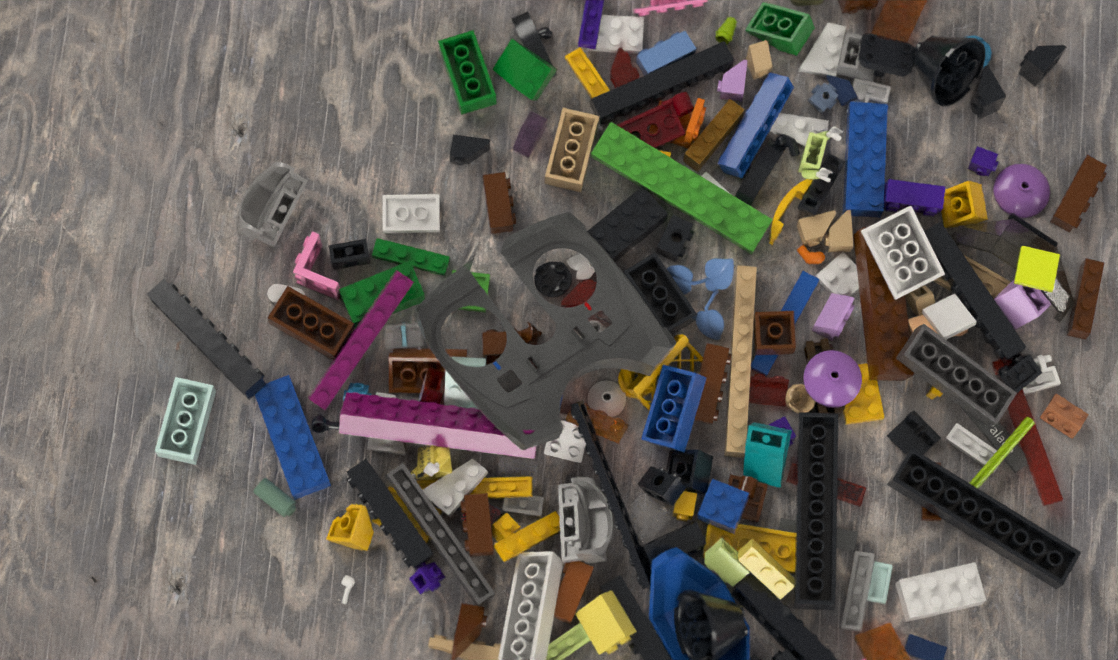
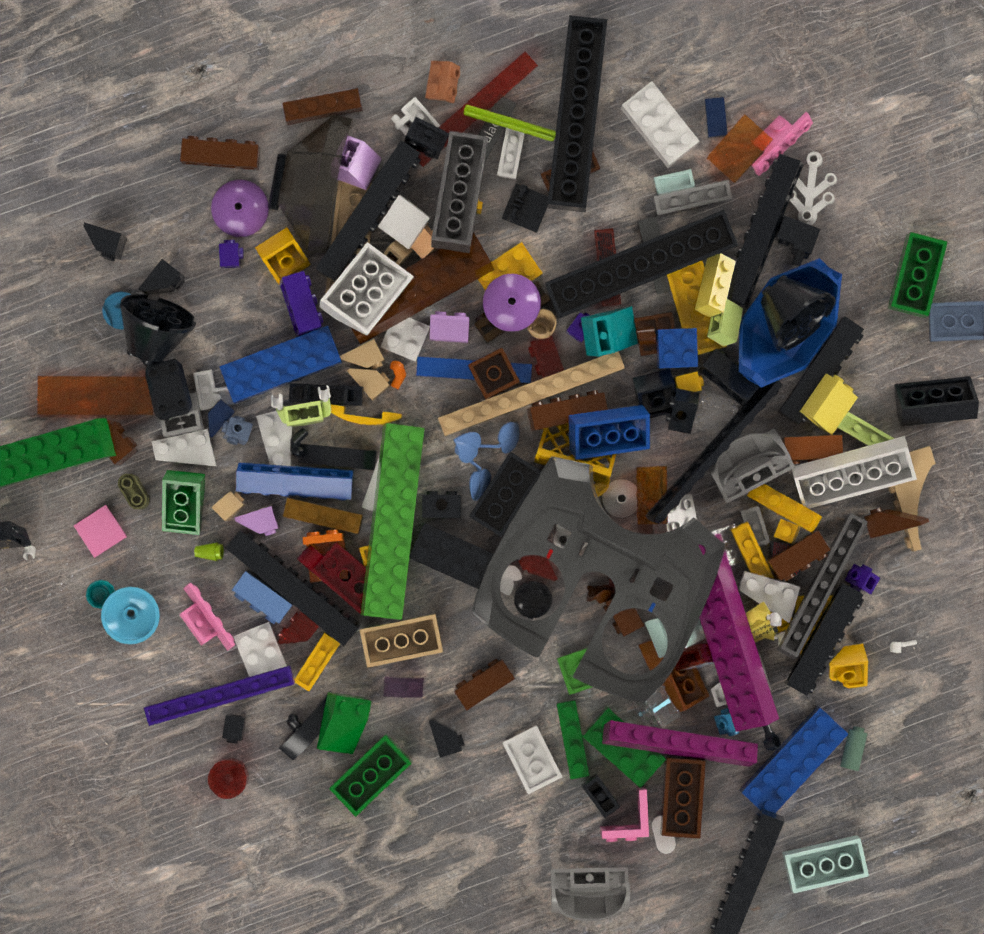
camera: 115 degrees left, 15 degrees up
(1036, 268) = (330, 158): neon yellow tile -> none

